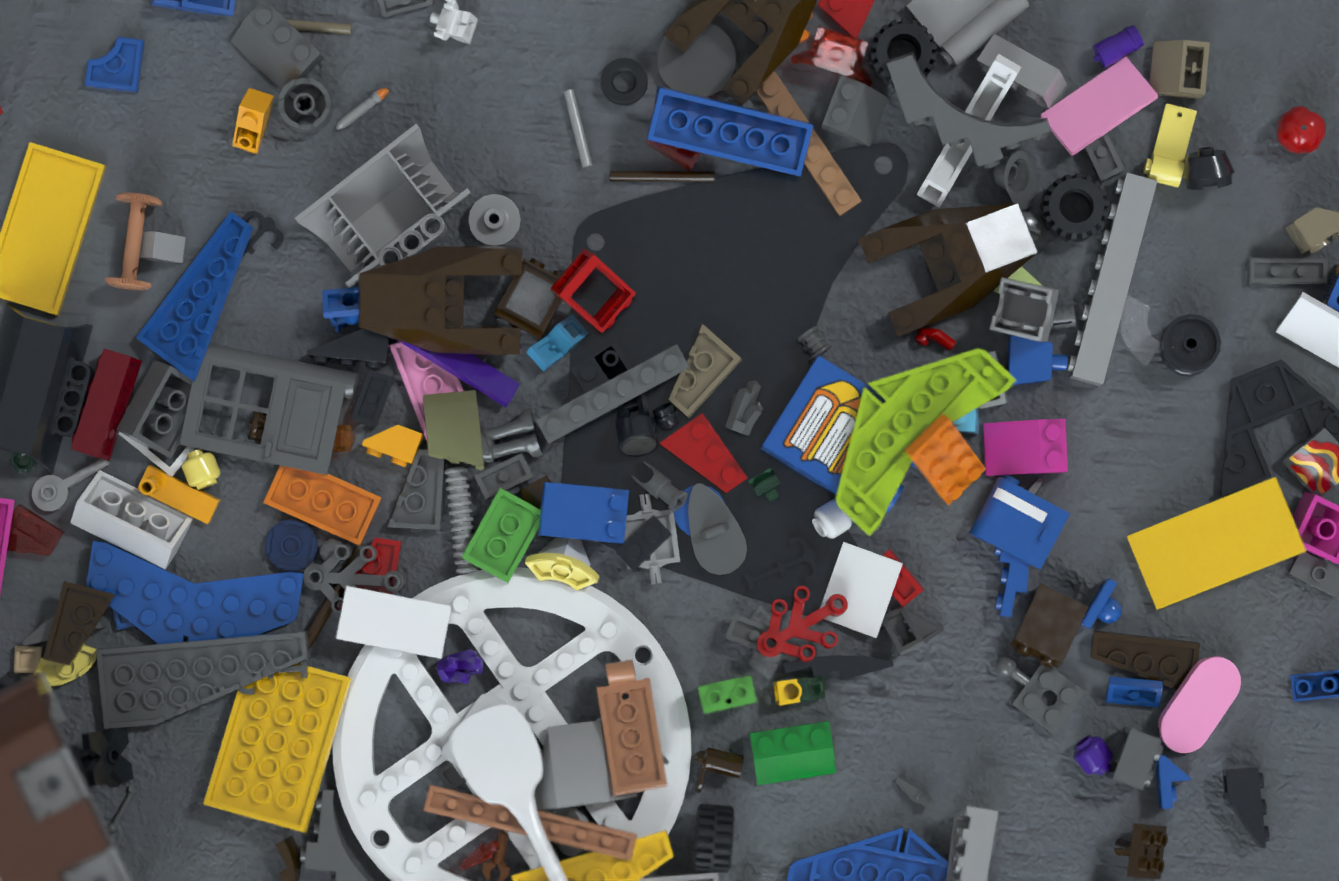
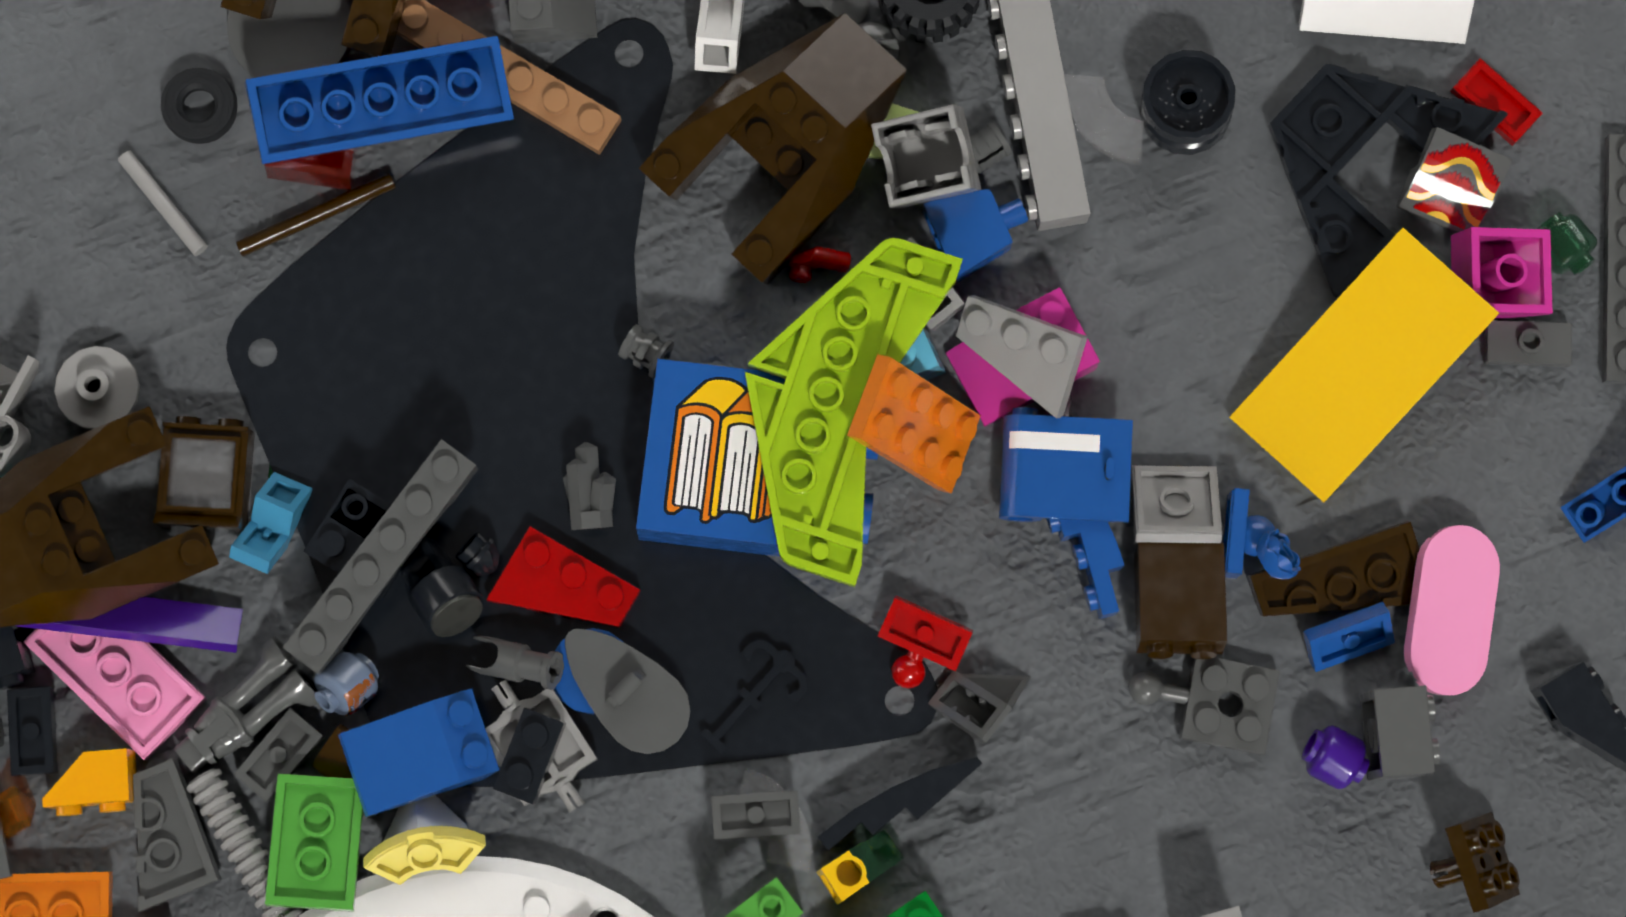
camera: 25 degrees left, 5 degrees down
(454, 427) = (169, 717): olive slope -> none
(560, 454) = (346, 683): none -> sand blue head
(573, 278) = (247, 411): red window -> none
(708, 365) = (507, 454): dark tan wing -> none
(765, 484) = (670, 586): clear green tile -> none
(799, 627) = (816, 773): red plant -> none
(830, 520) = (790, 593): white head -> none
(867, 585) = (880, 676): white sticker -> none
(1028, 445) = (1025, 350): none -> light grey wing
(1072, 571) = (1176, 504): none -> light grey tile
(1114, 628) = (1277, 556): none -> blue plate
(1165, 774) = (1453, 734): blue slope -> none

